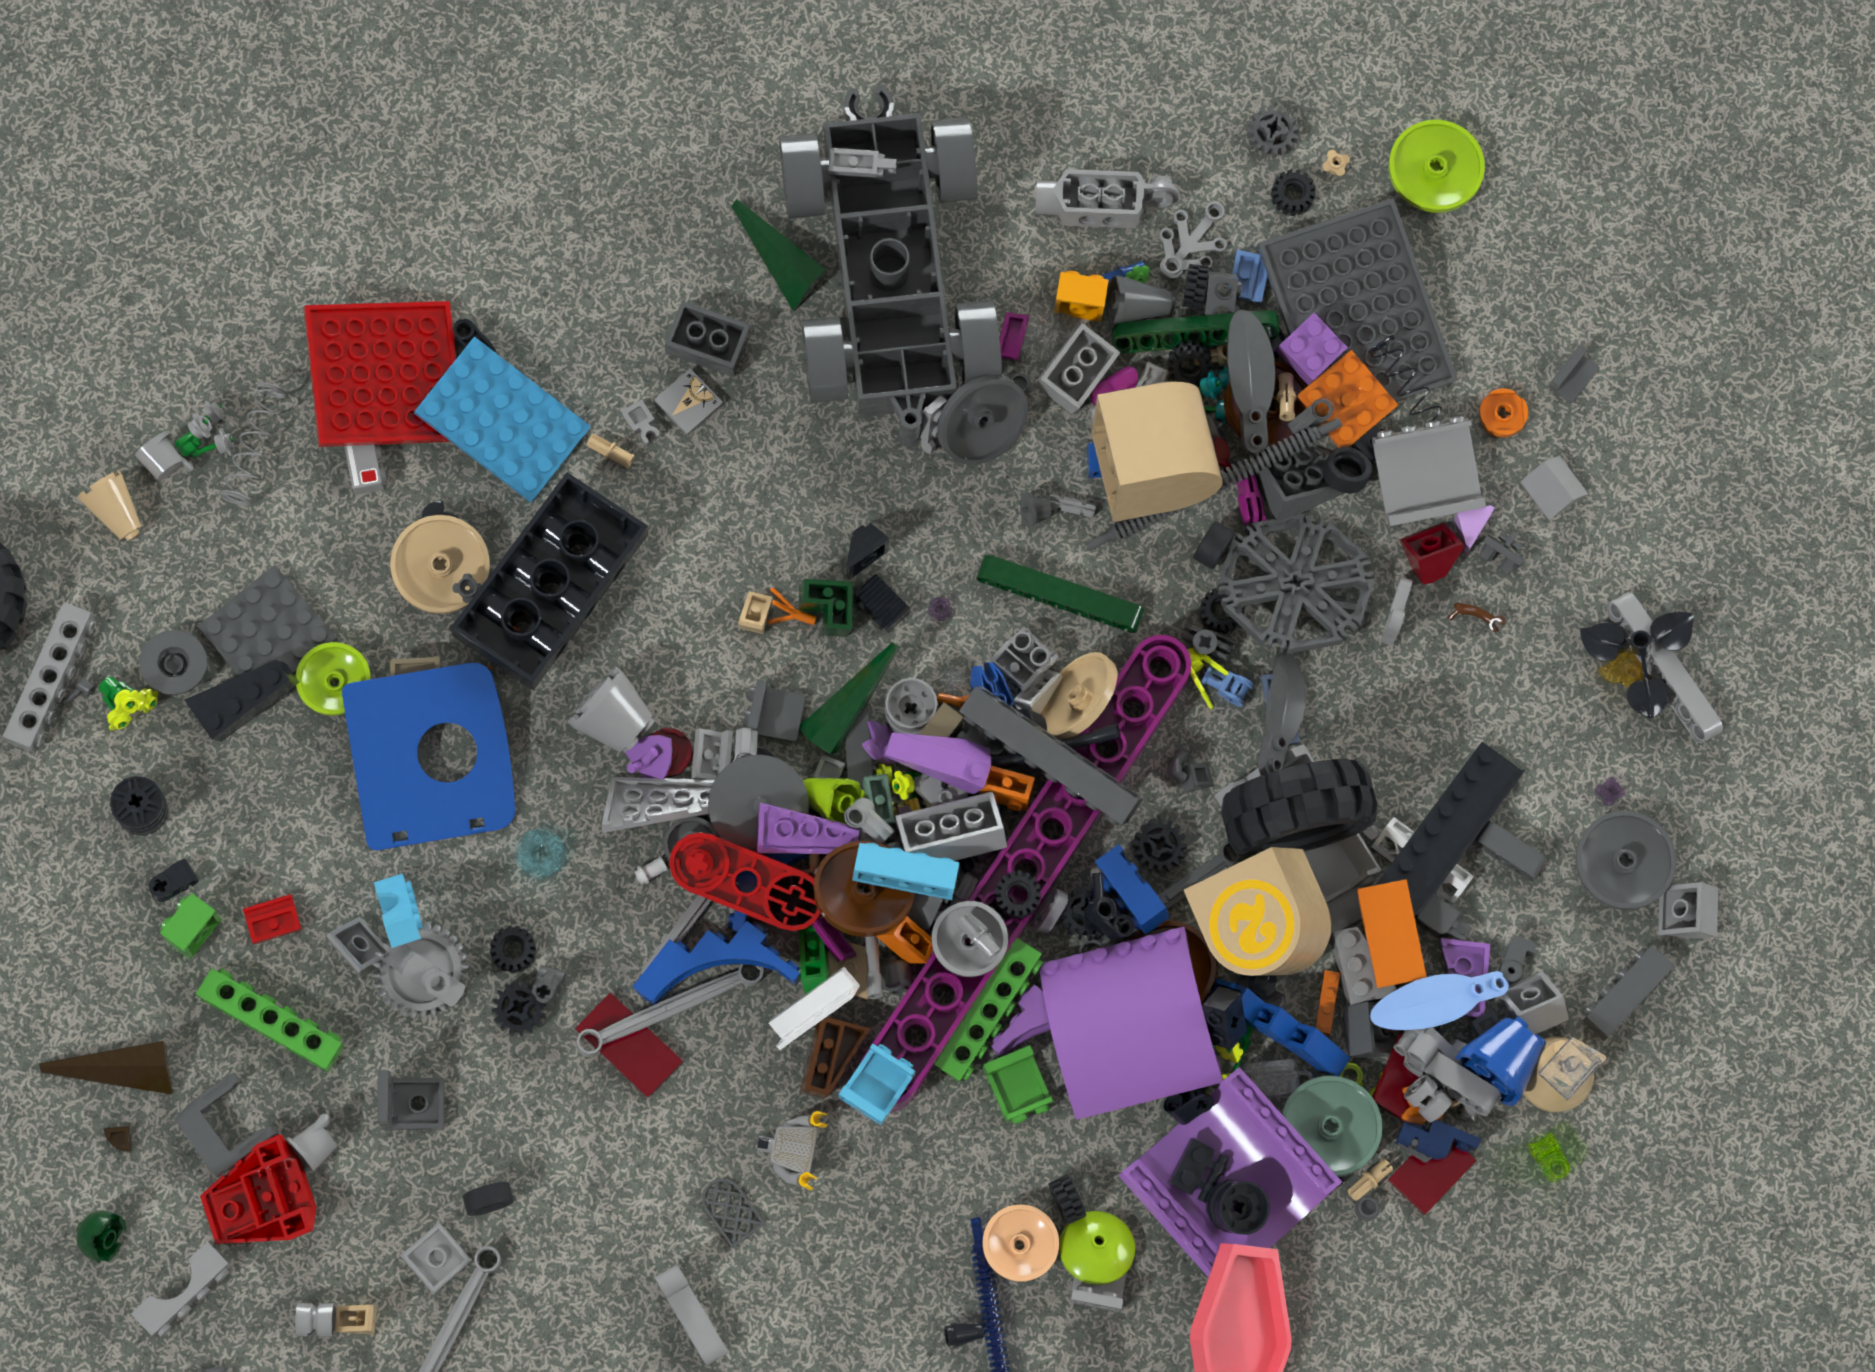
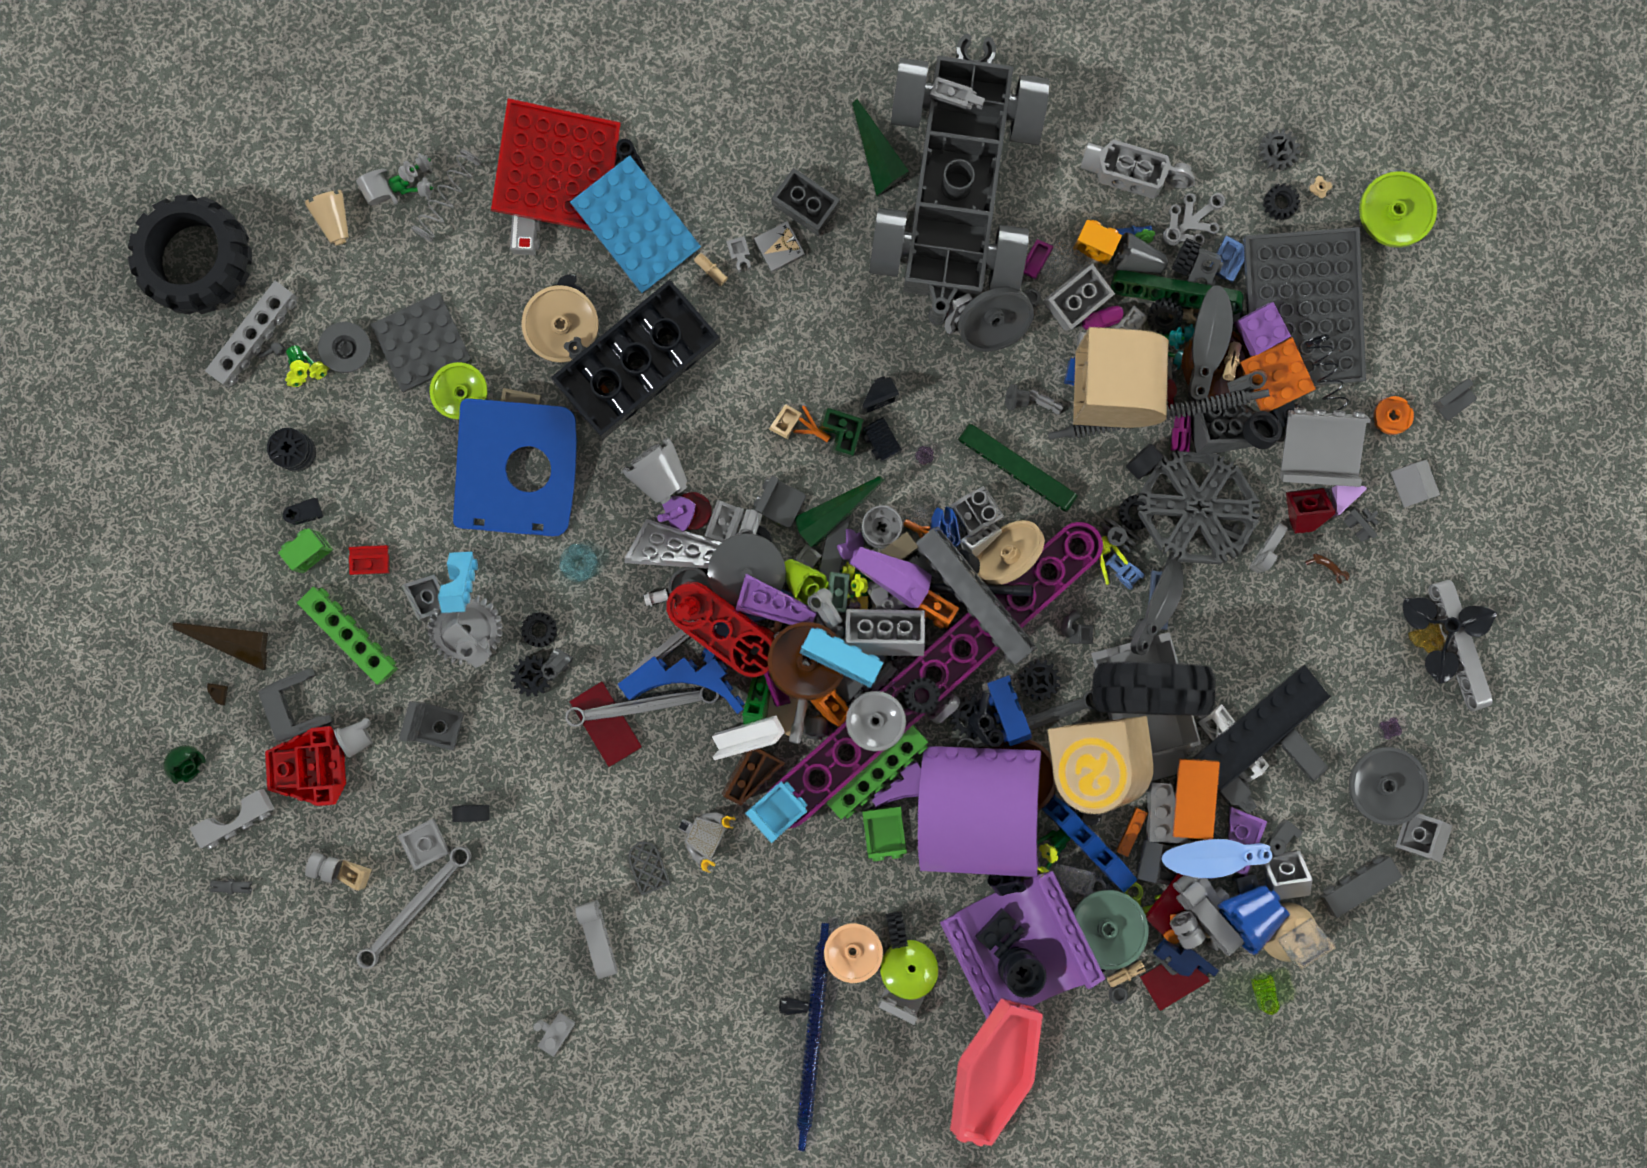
camera: 20 degrees right, 10 degrees up
(239, 700) = (381, 390): black wedge -> none
(978, 936) = (882, 722): light grey axle -> none
(1225, 1017) = (1052, 832): black brick -> none

